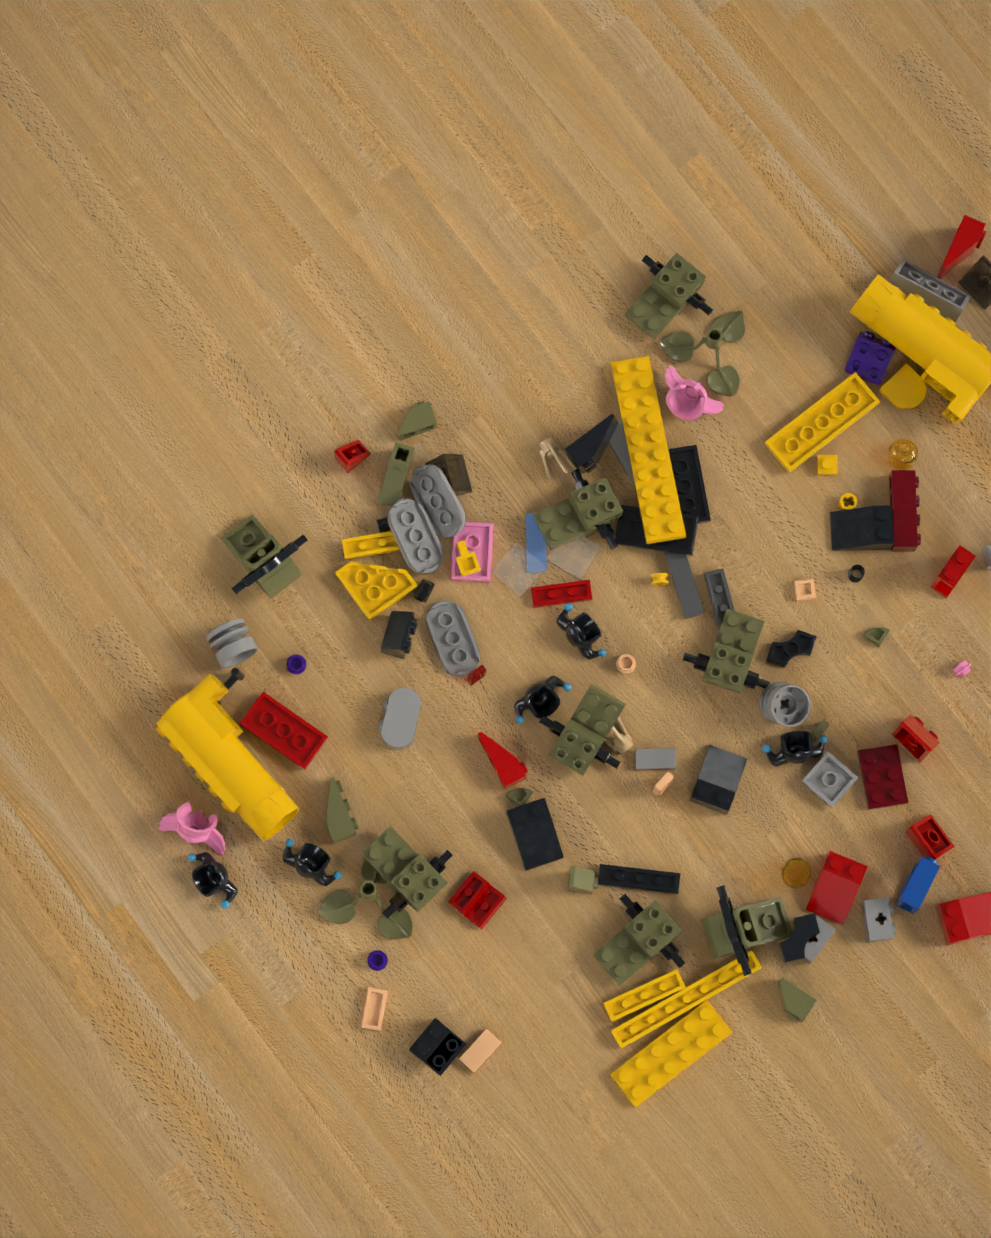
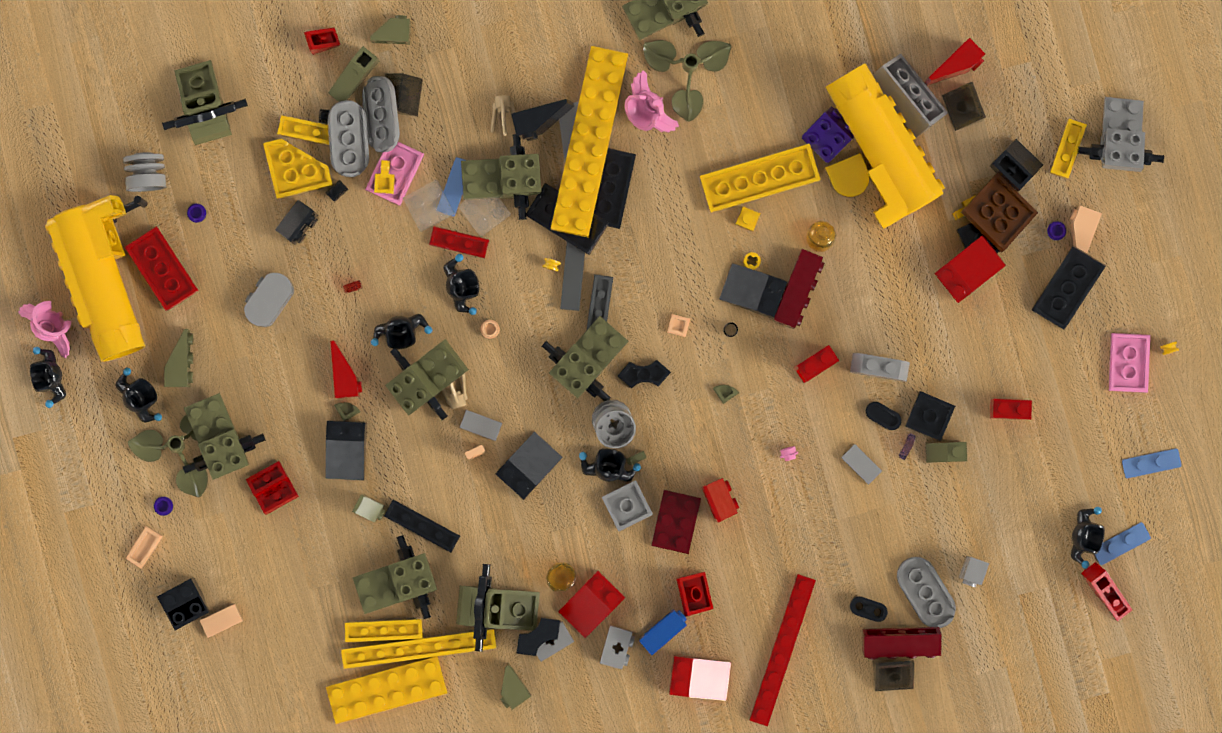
camera: 25 degrees right, 10 degrees up
(453, 638) = (345, 244): light grey tile -> none

